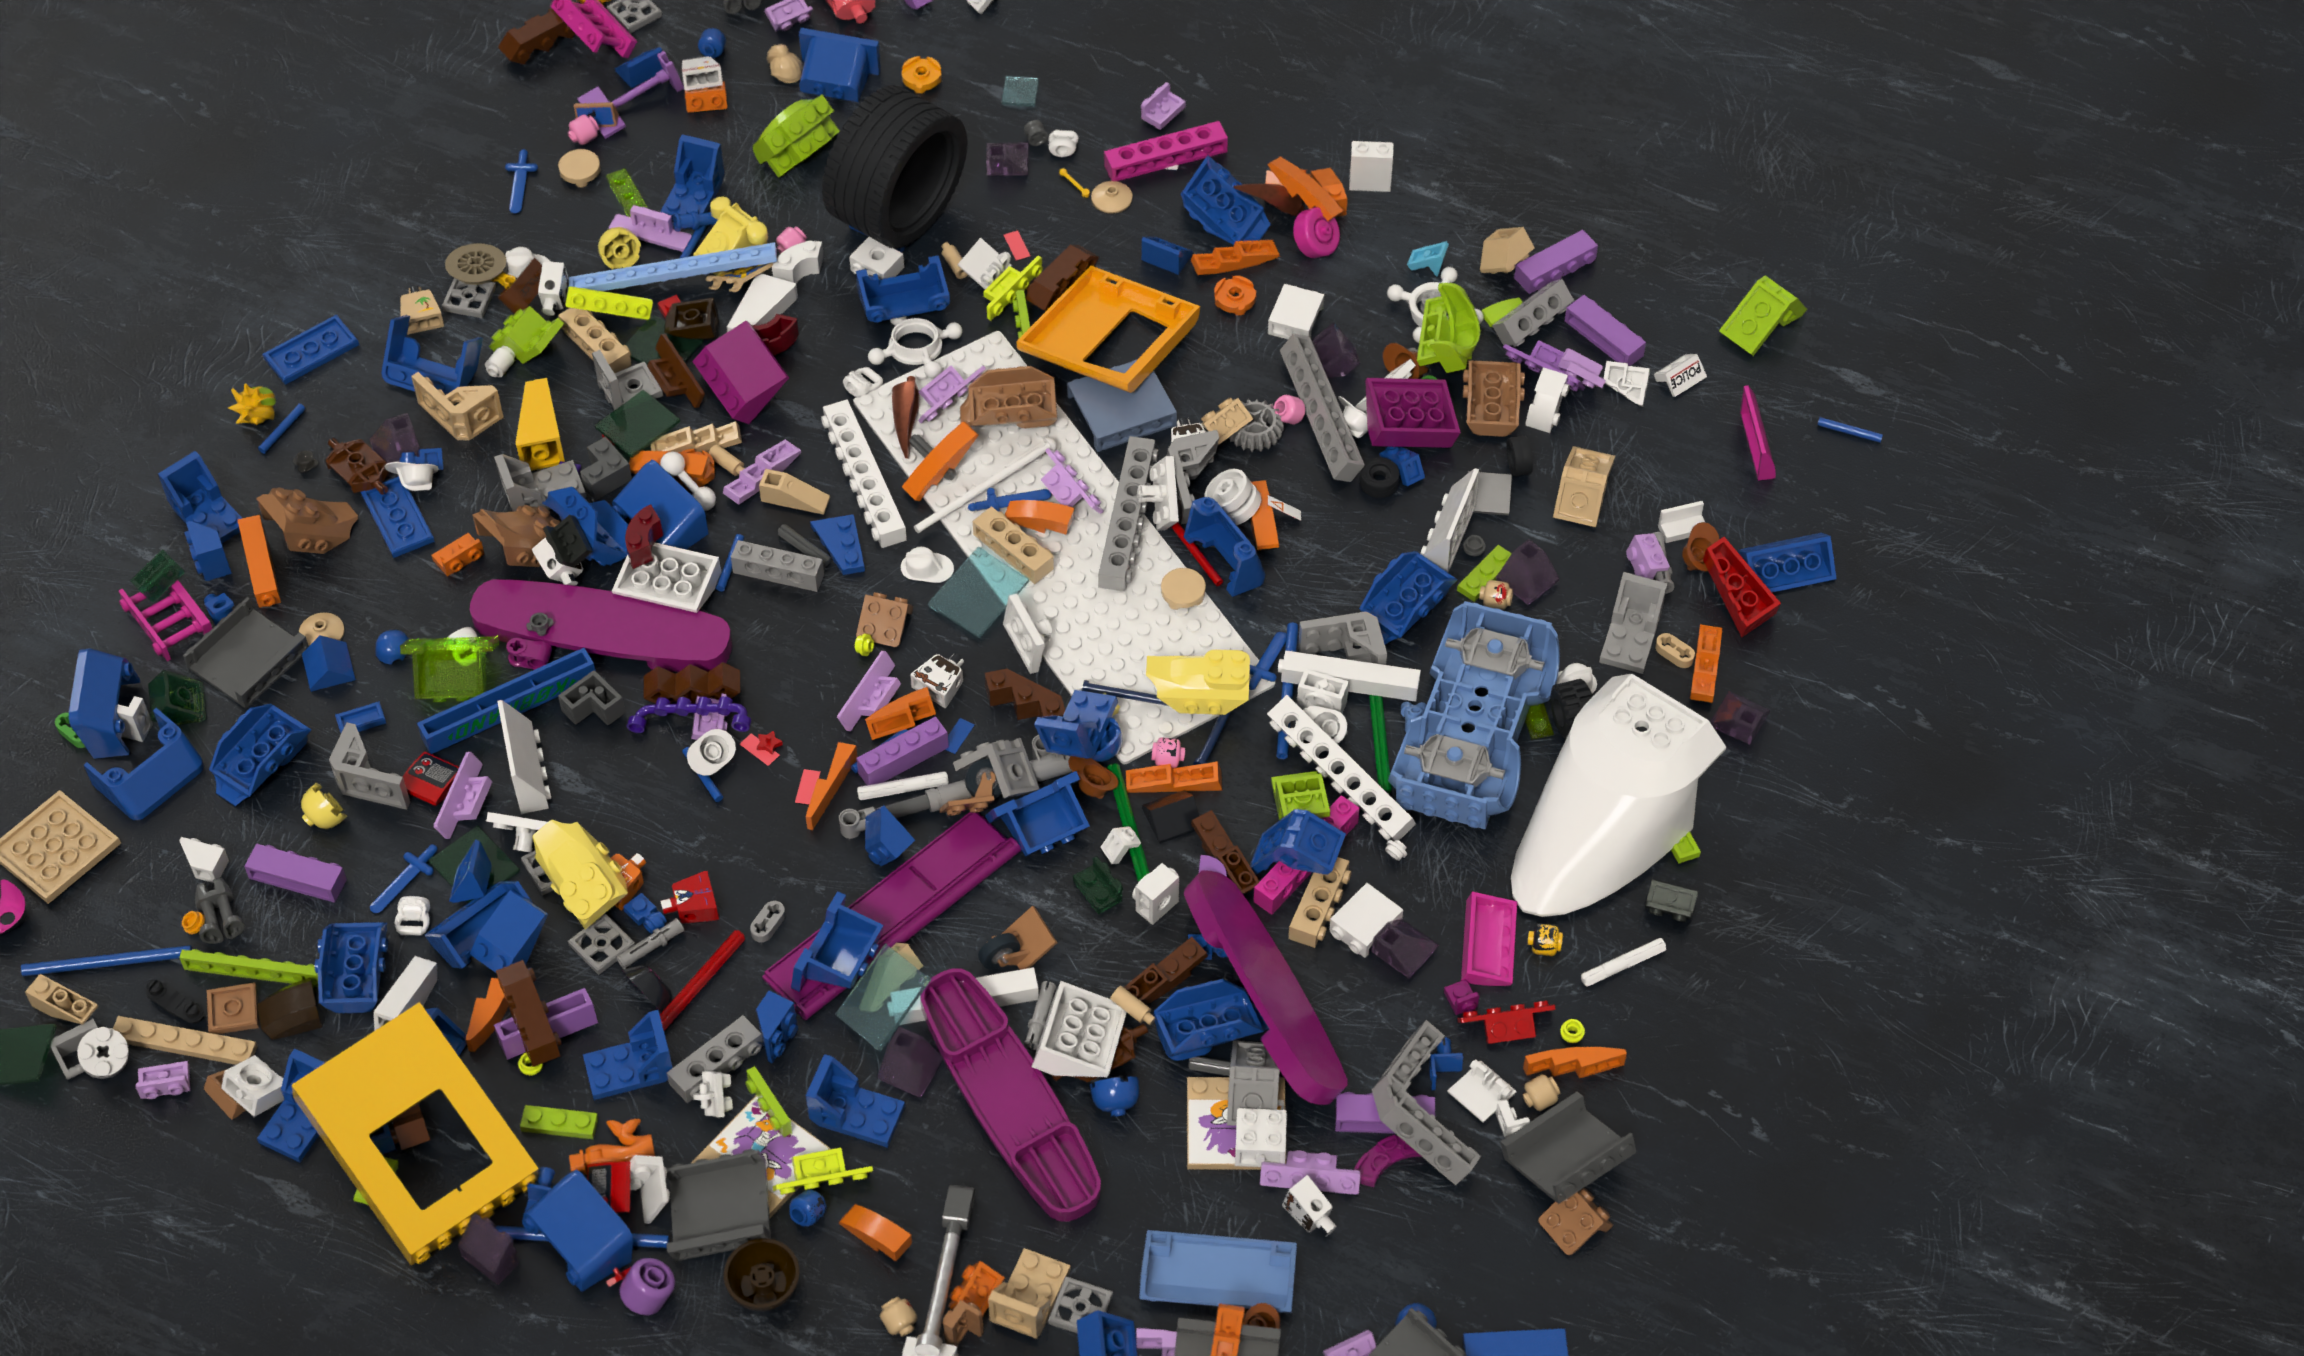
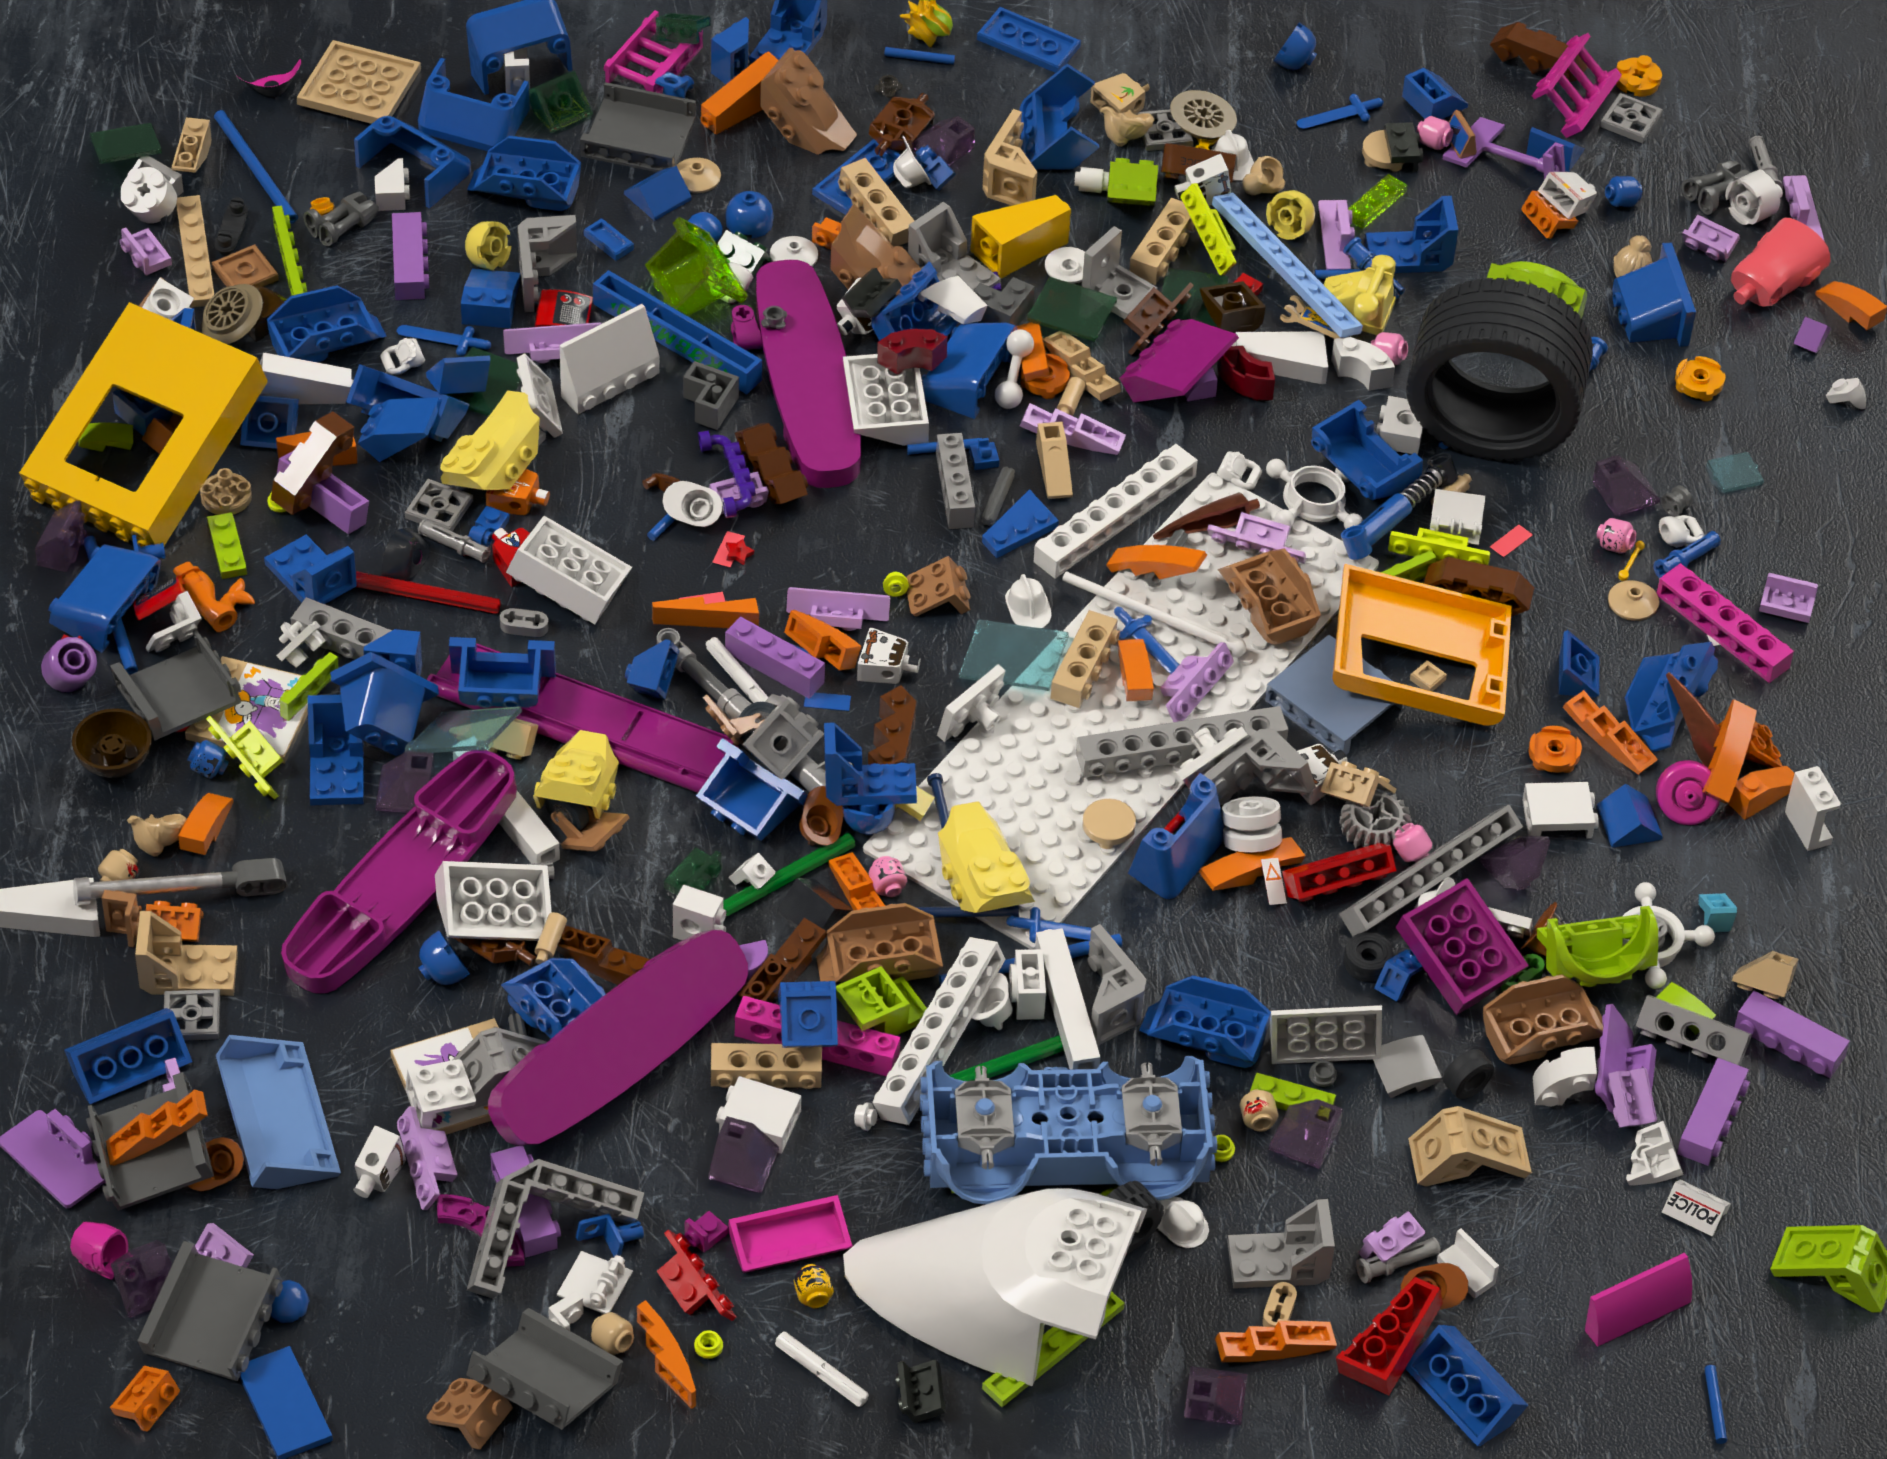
camera: 65 degrees right, 5 degrees down
(174, 817) = (450, 164): none -> blue windscreen
(302, 1008) = (232, 313): none -> dark tan piece
(379, 826) = (489, 298): none -> blue slope
(396, 607) = (749, 214): none -> blue cylinder
(439, 179) = (1297, 49): none -> blue cylinder
(439, 626) = (738, 250): none -> bracket
(440, 511) = (875, 200): none -> tan brick
(454, 600) = (794, 249): none -> white dish
(456, 316) = (1125, 125): none -> tan hair
(505, 1099) = (226, 493): none -> tan tile
(543, 118) = (1431, 95): none -> blue slope
(566, 251) = (1264, 177): none -> tan hair
(584, 152) = (1403, 144): none -> pearl dark grey bracket
(585, 410) = (1065, 264): none -> white dish
(597, 489) = (955, 300): none -> white slope
(669, 767) = (660, 480): none -> reddish brown piece
(739, 864) = (568, 569): none -> white slope
(756, 536) = (984, 454): none -> blue tile
(836, 1045) = (381, 701): none -> blue windscreen
(872, 1269) = (156, 833): none -> tan hair
(964, 296) = (1361, 537): none -> piece
(969, 932) = (580, 773): none -> light yellow slope
(1052, 179) = (1616, 535): none -> bright pink head
(1083, 132) = (1687, 554): none -> blue pin
(1126, 343) = (1428, 676): none -> tan tile
(1243, 782) = (885, 936): none -> medium nougat slope
(1296, 463) = (1339, 871): none -> red brick
(1319, 277) = (1628, 818): none -> blue slope

